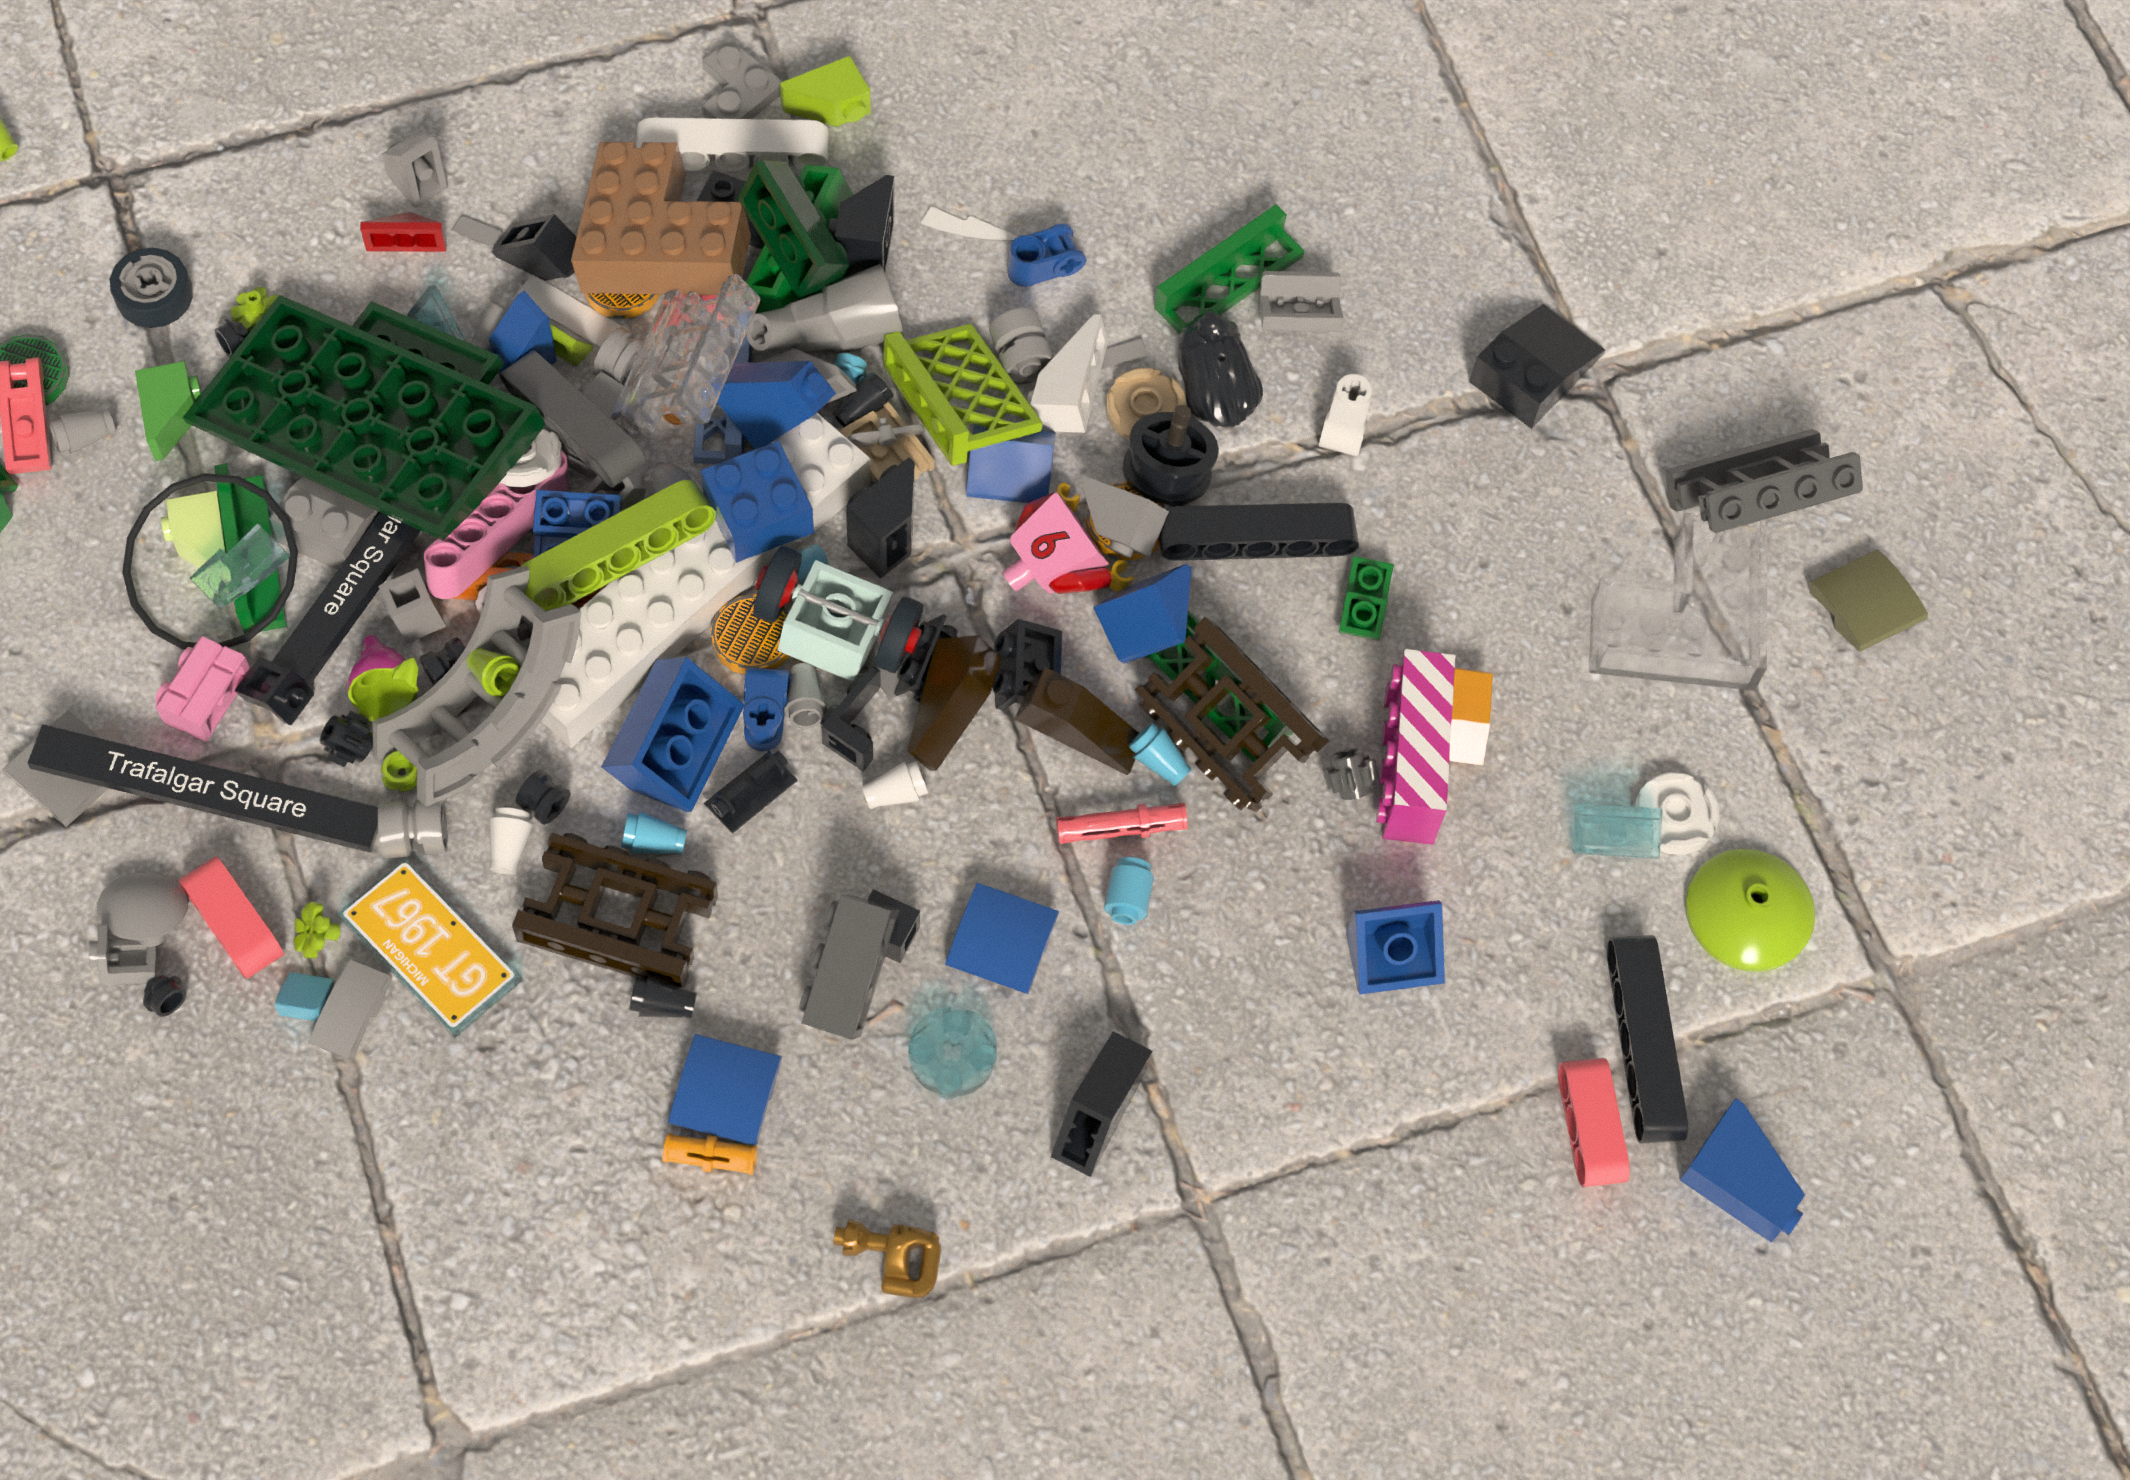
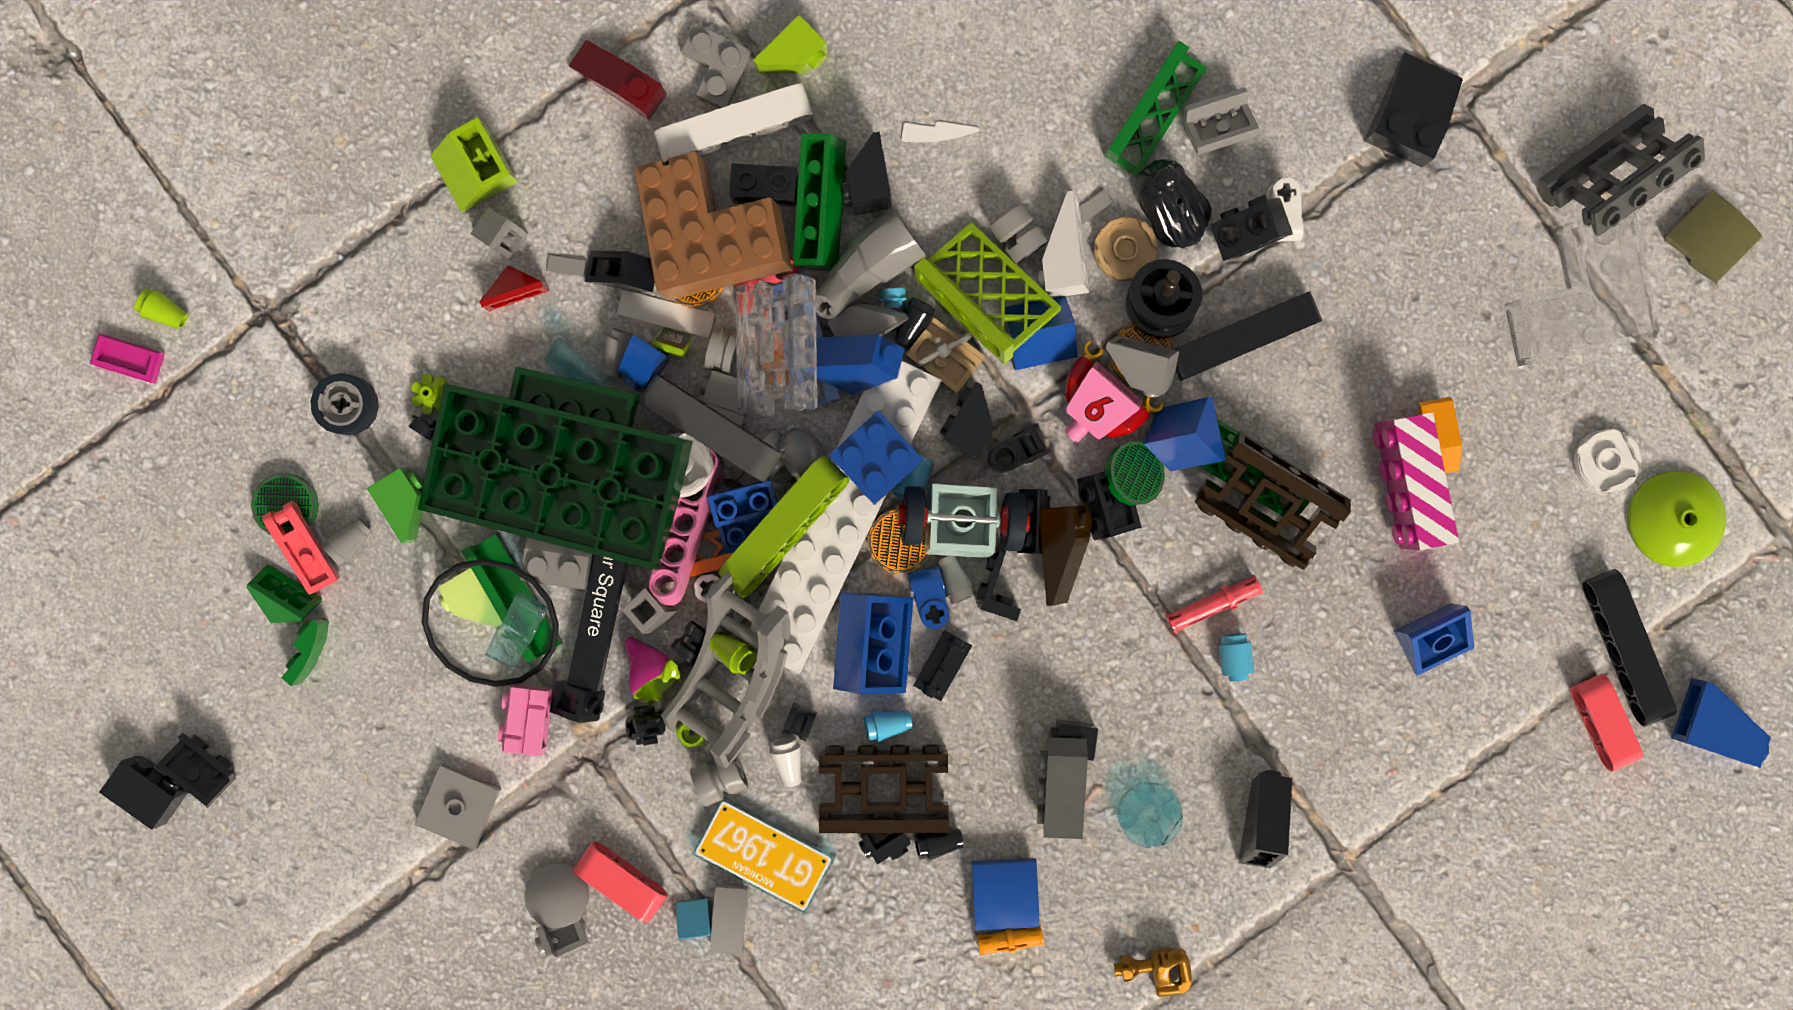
camera: 10 degrees left, 25 degrees up
(164, 995) = (598, 950): black plate -> none
(205, 788) = (561, 795): black tile -> none
(314, 930) = (681, 872): lime plant -> none
(416, 93) = (472, 164): none -> lime slope
(594, 982) = (891, 846): none -> black bracket
(623, 68) = (618, 79): none -> dark red slope
(792, 228) = (821, 211): dark green slope -> none
(896, 786) = (1046, 628): white cone -> none
(940, 574) = (1024, 448): none -> black piece
(1002, 938) = (1158, 721): blue slope -> none
(1050, 256) = (1013, 139): blue piece -> none
(1071, 640) = (1134, 473): none -> tile
(1077, 720) = (1161, 542): dark brown slope -> none
(1159, 753) = (1224, 542): medium azure cone -> none
(1299, 414) = (1252, 232): none -> black brick
(1351, 773) = (1369, 513): dark grey gear -> none
(1366, 598) = (1337, 361): green slope -> none
(1617, 831) = (1572, 494): clear light blue slope -> none

